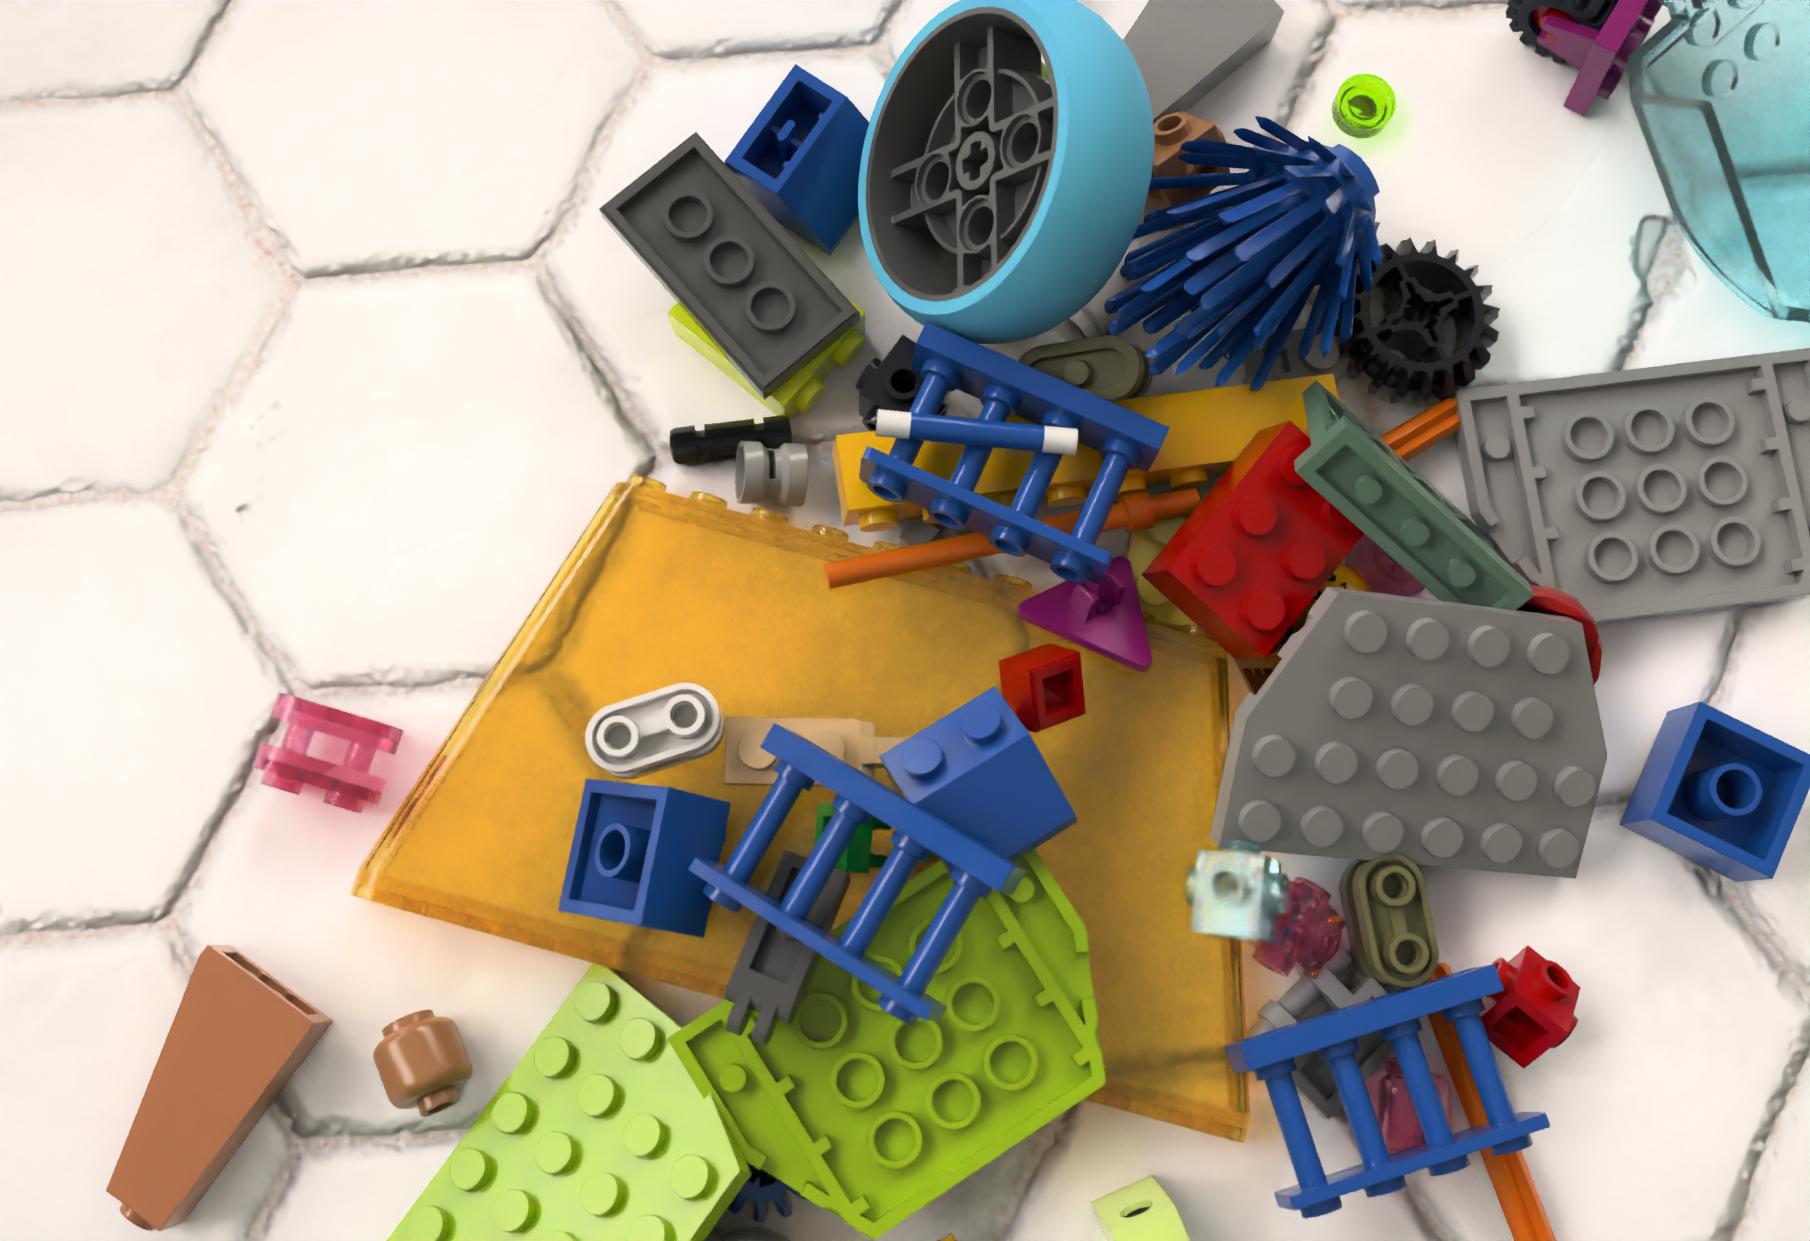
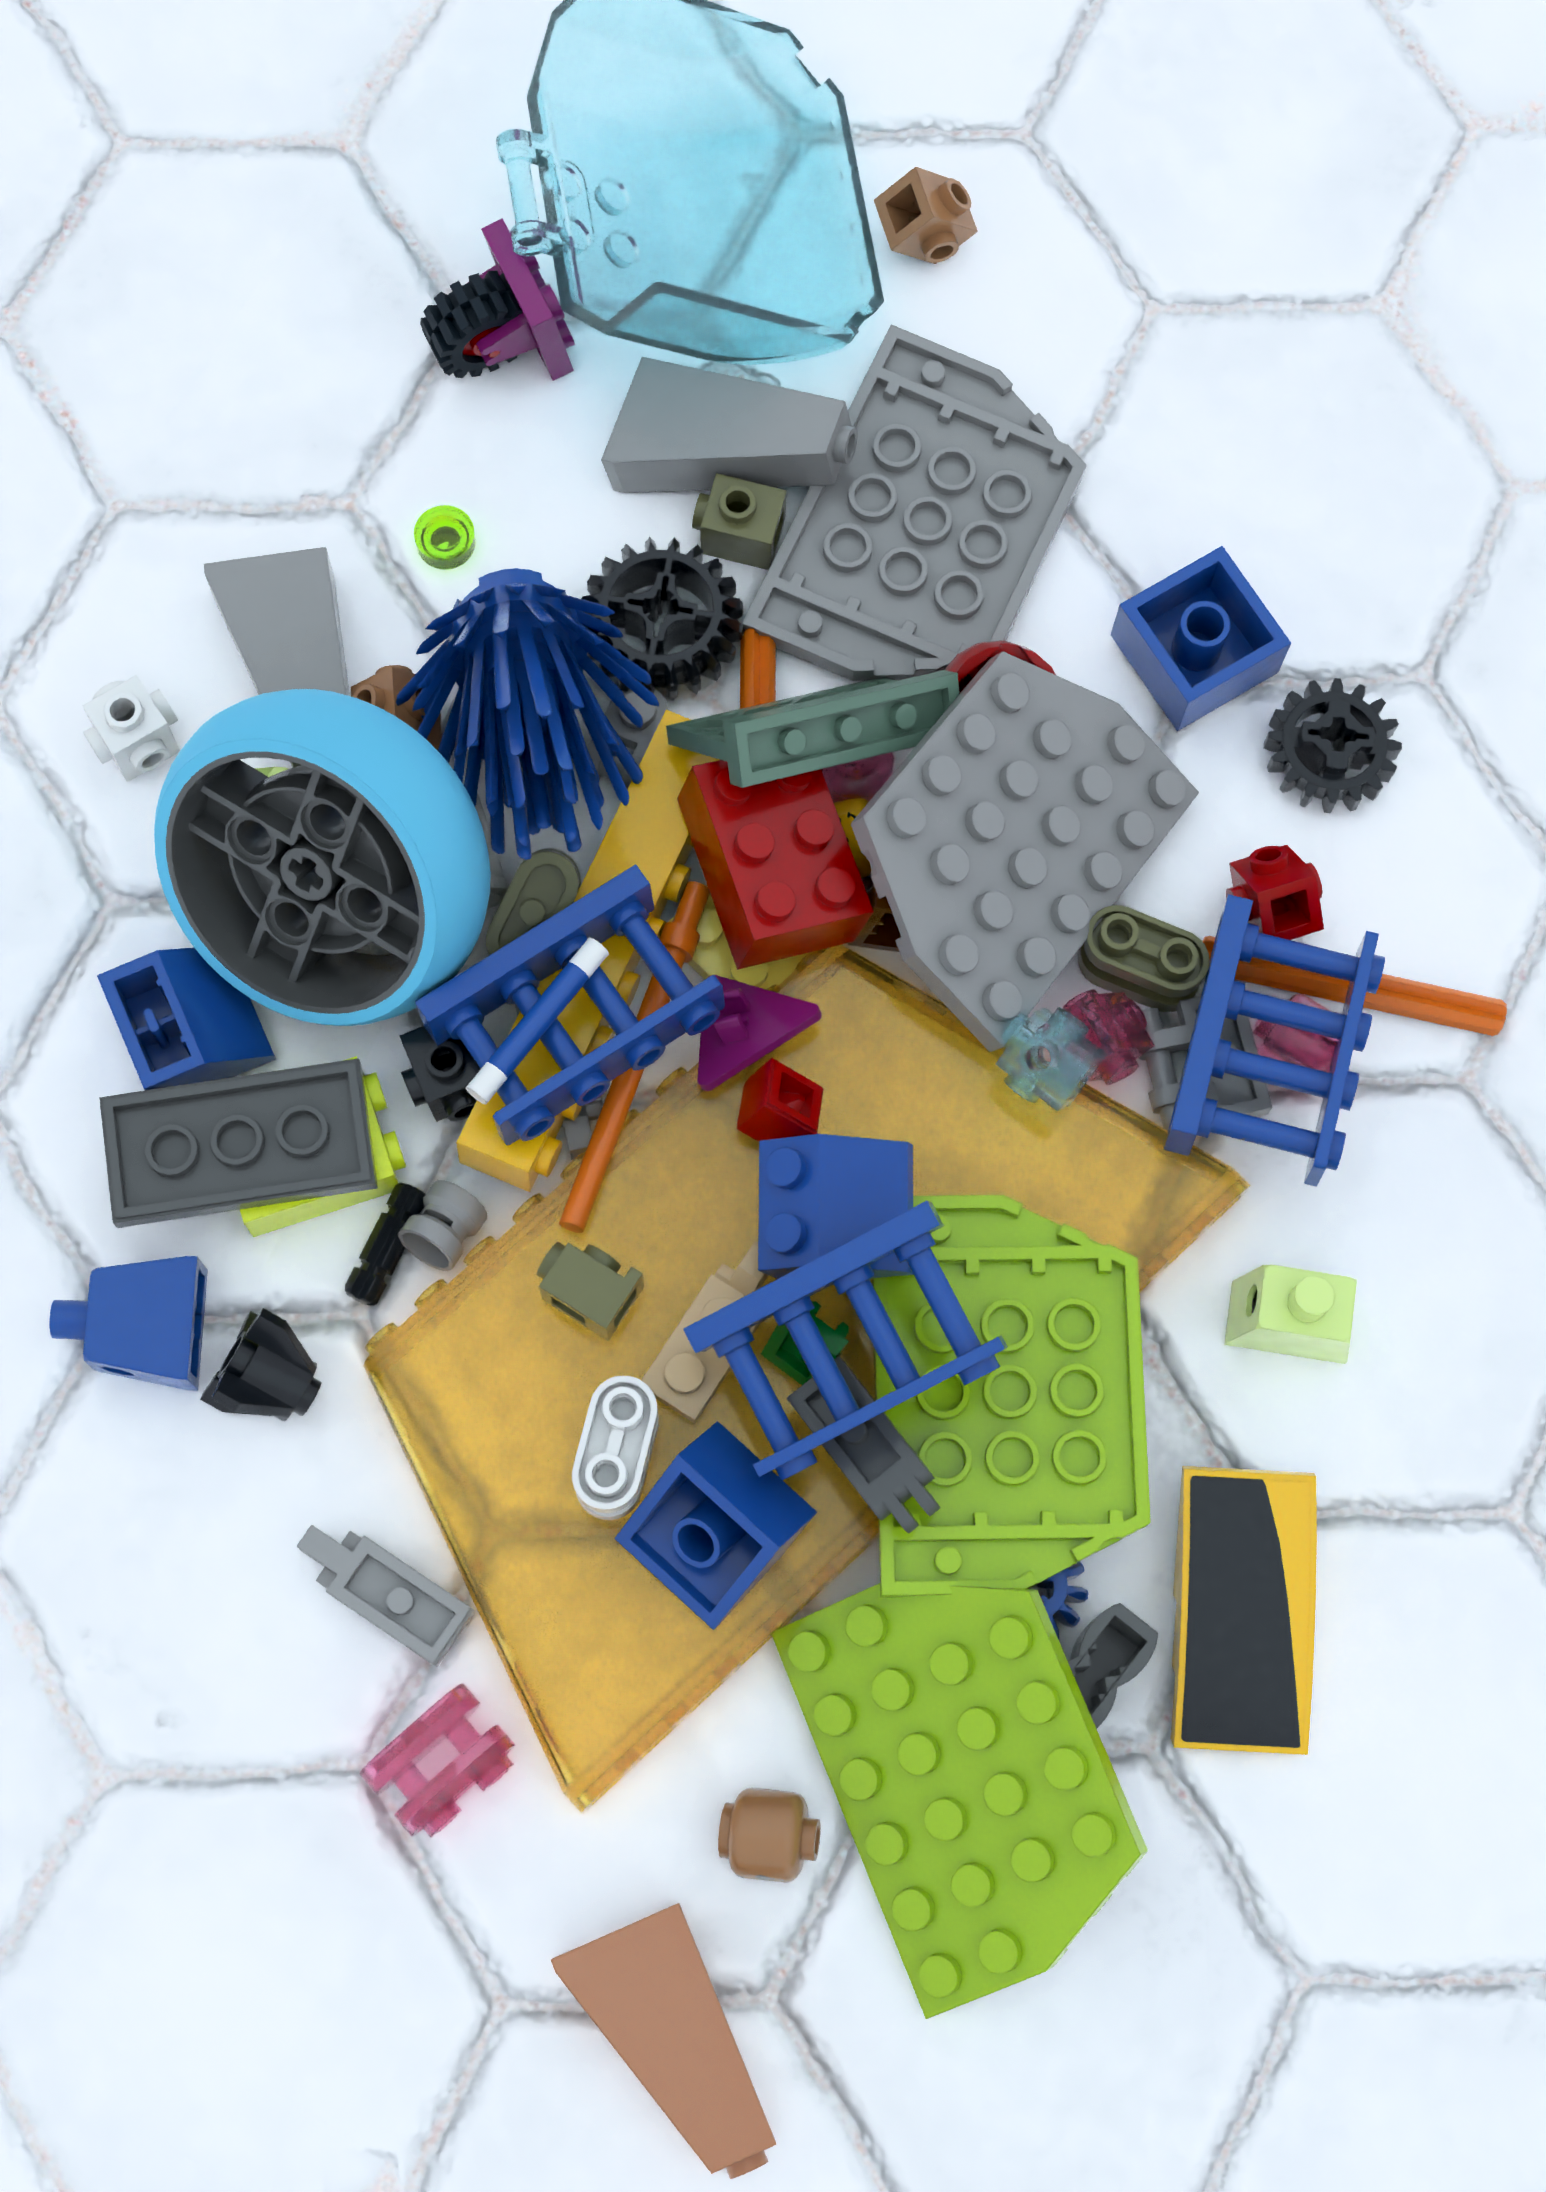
camera: 55 degrees left, 5 degrees down
(442, 622) = (388, 1593): none -> light grey hinge
(545, 288) = (140, 1321): none -> blue torso
(558, 410) = (264, 1371): none -> black brick
(781, 622) = (588, 1287): none -> olive brick
(1547, 332) = (740, 521): none -> olive brick
(1615, 267) = (695, 423): none -> light grey slope
(1728, 985) = (1357, 740): none -> black gear

